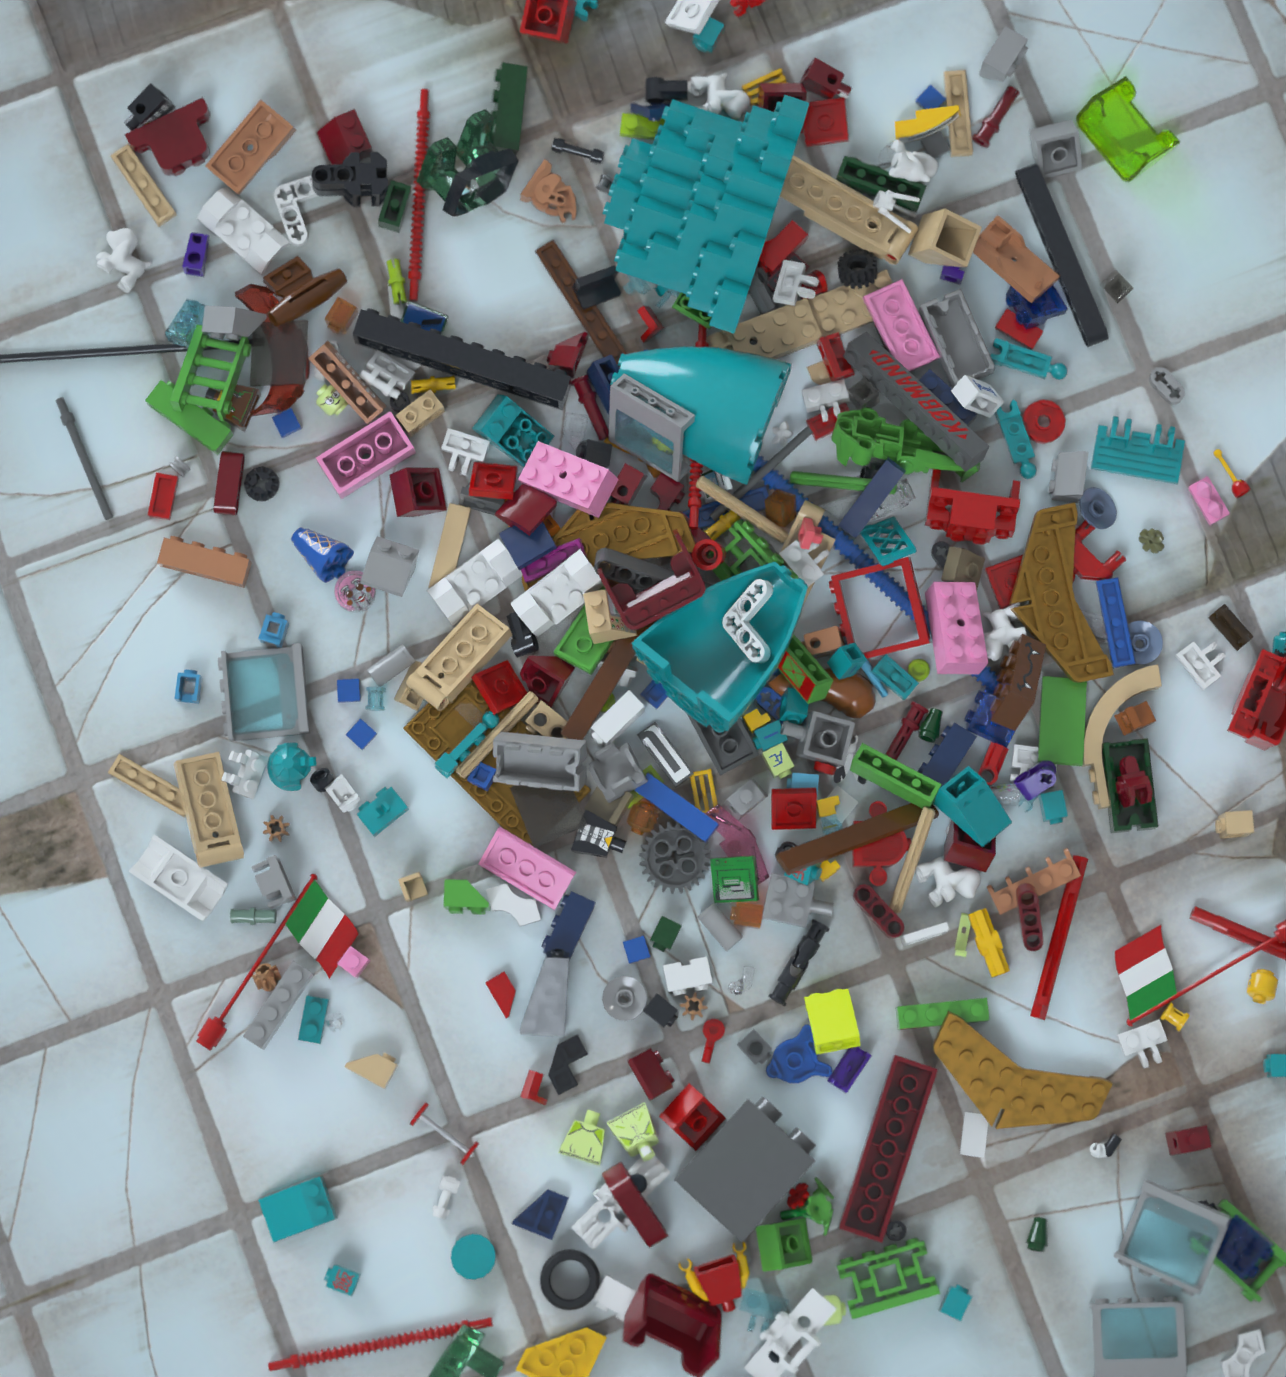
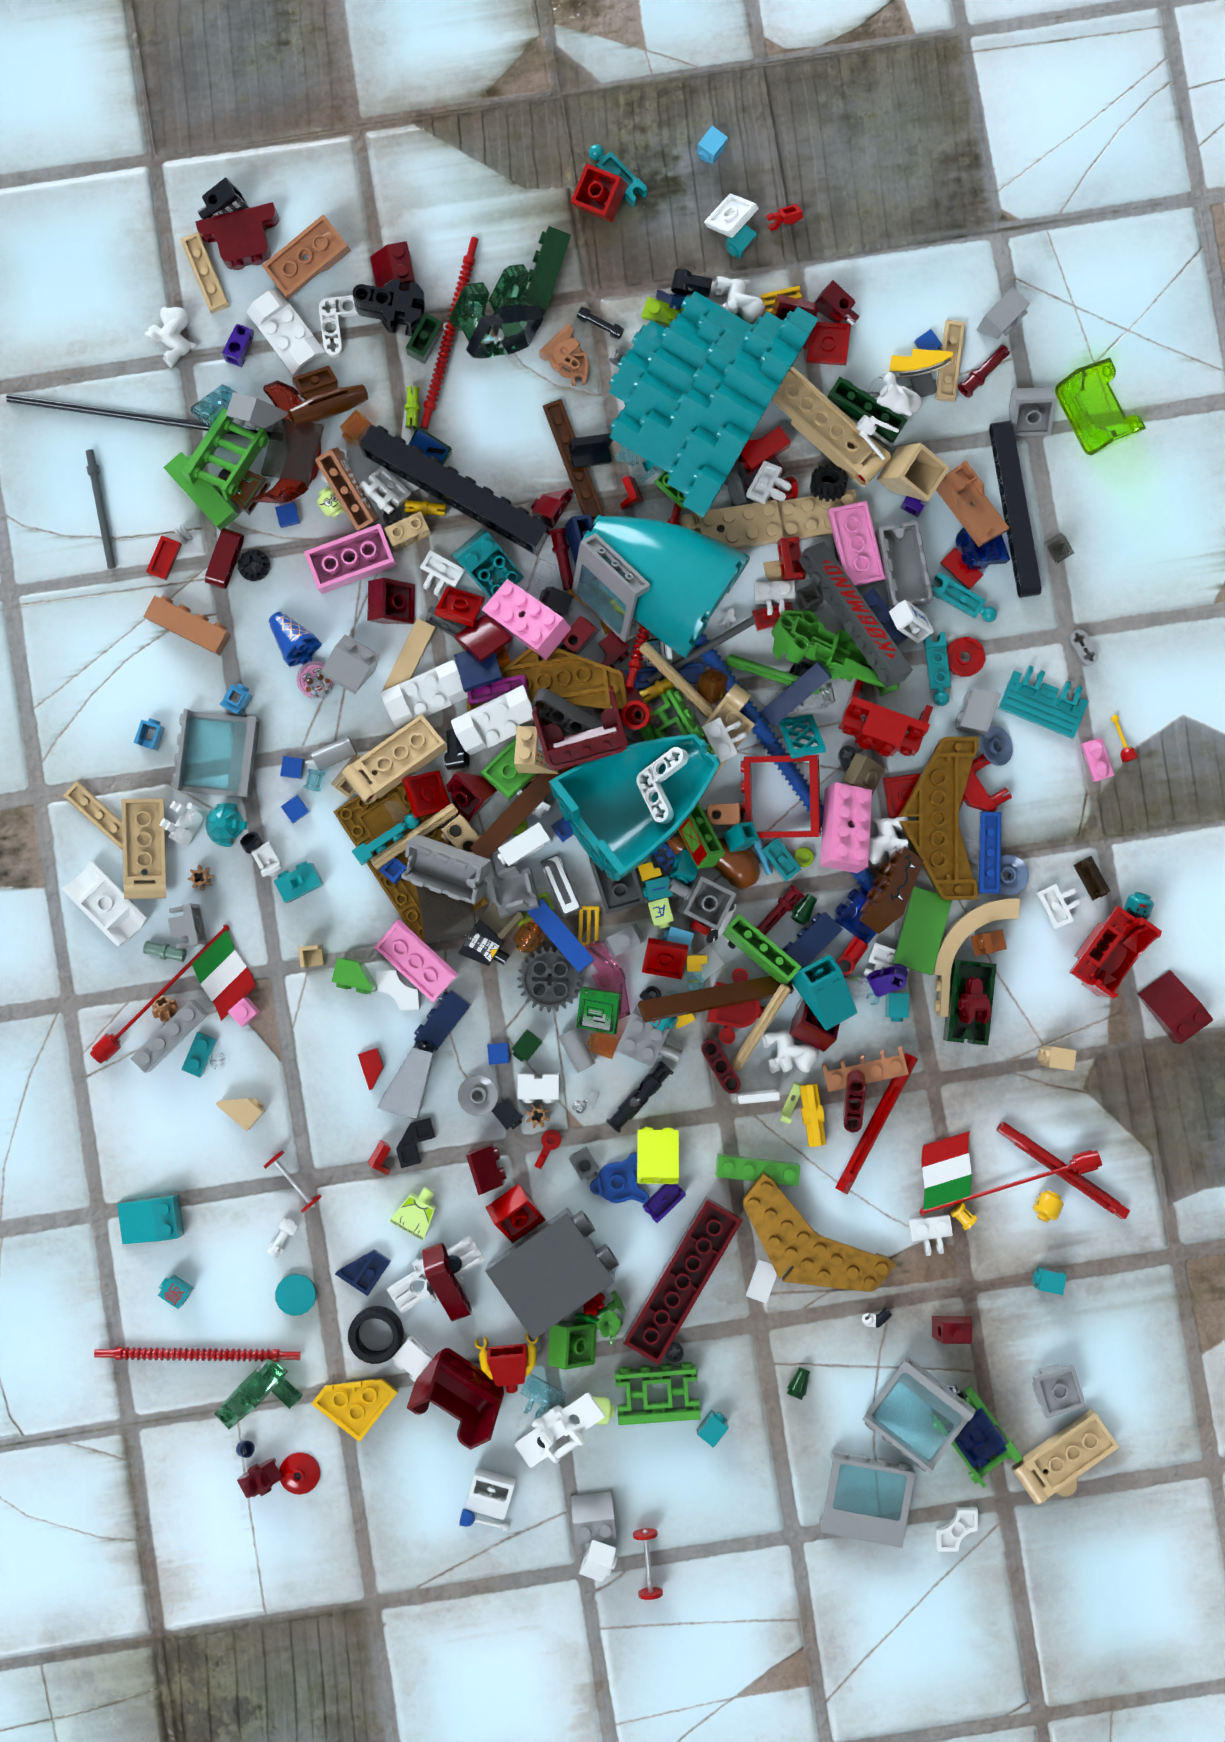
camera: 10 degrees right, 5 degrees up
(635, 1132) = (462, 1217): yellowish green torso -> none
(809, 533) = (732, 715): coral tile -> none
(1152, 540) = (1038, 784): olive plant -> none

